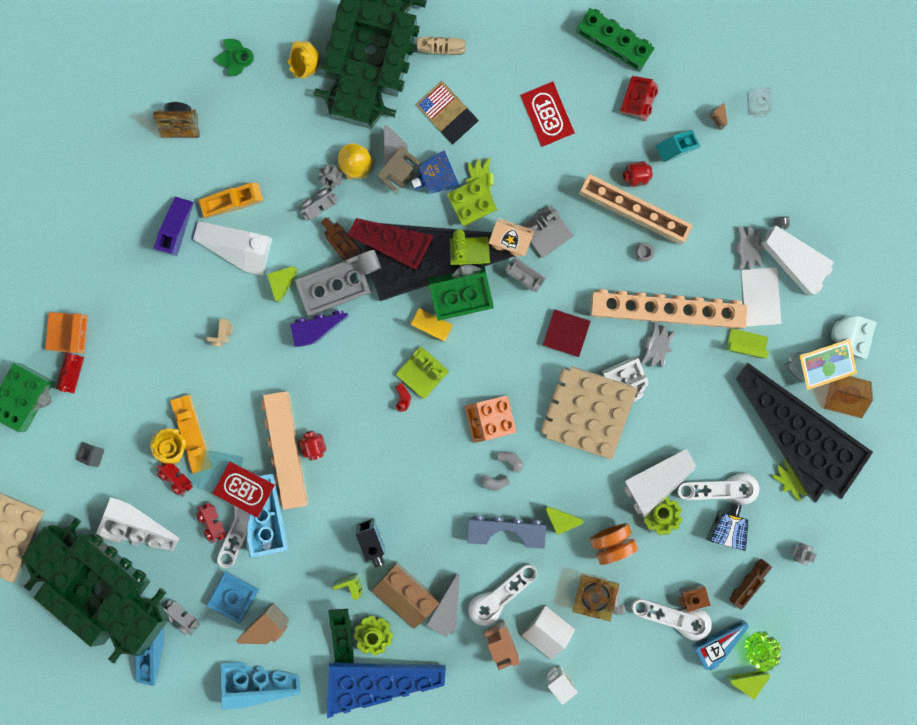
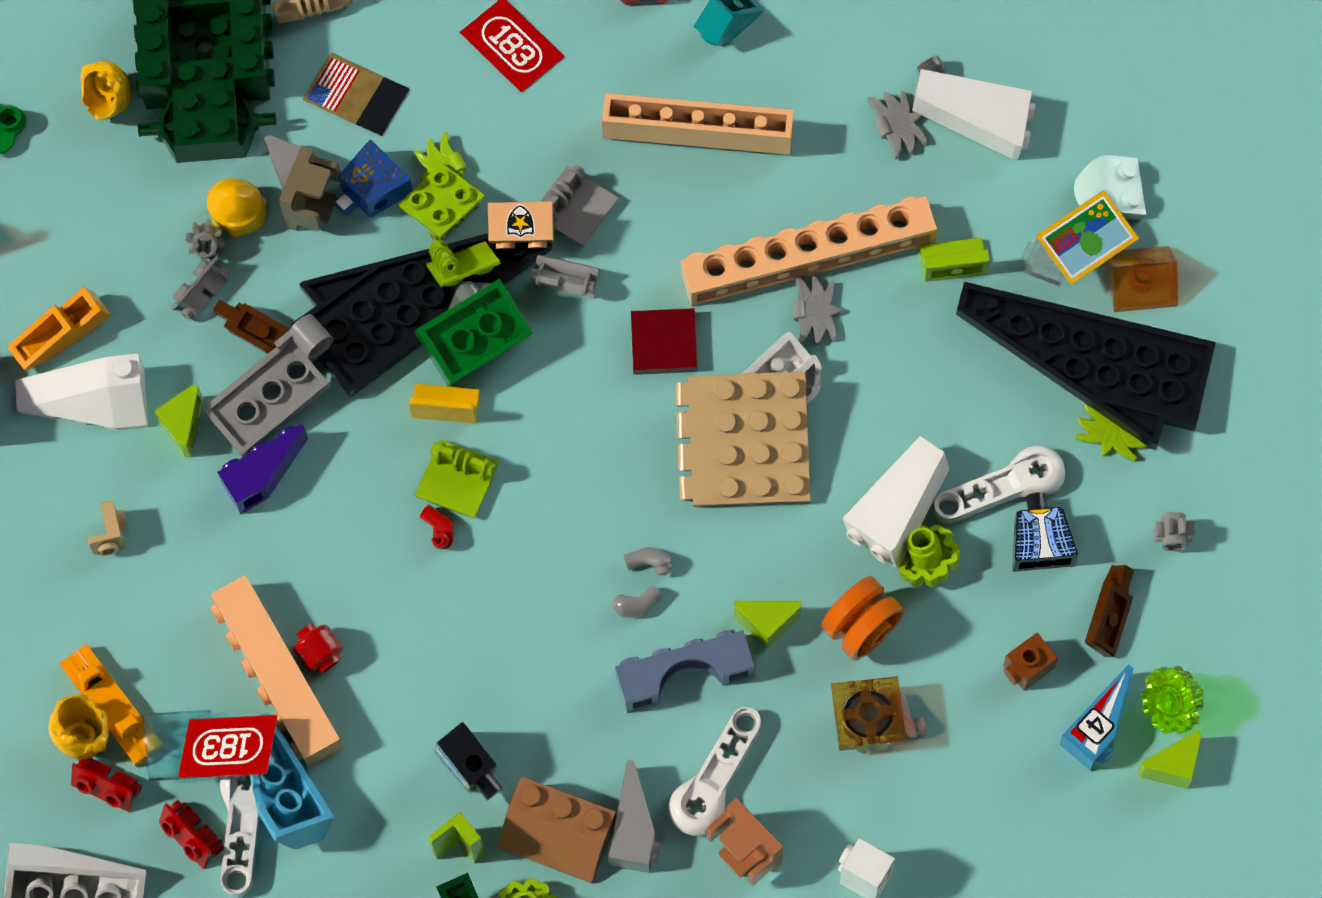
camera: 15 degrees left, 20 degrees down
(397, 243) = (350, 296): dark red wing -> none
(490, 419) = (590, 506): orange bracket -> none
(549, 633) = (815, 807): white slope -> none
(637, 174) = (682, 76): red head -> none
(644, 252) = (739, 183): light grey plate -> none
(677, 618) = (1016, 708): white beam -> none
(761, 296) = (948, 184): white sticker -> none

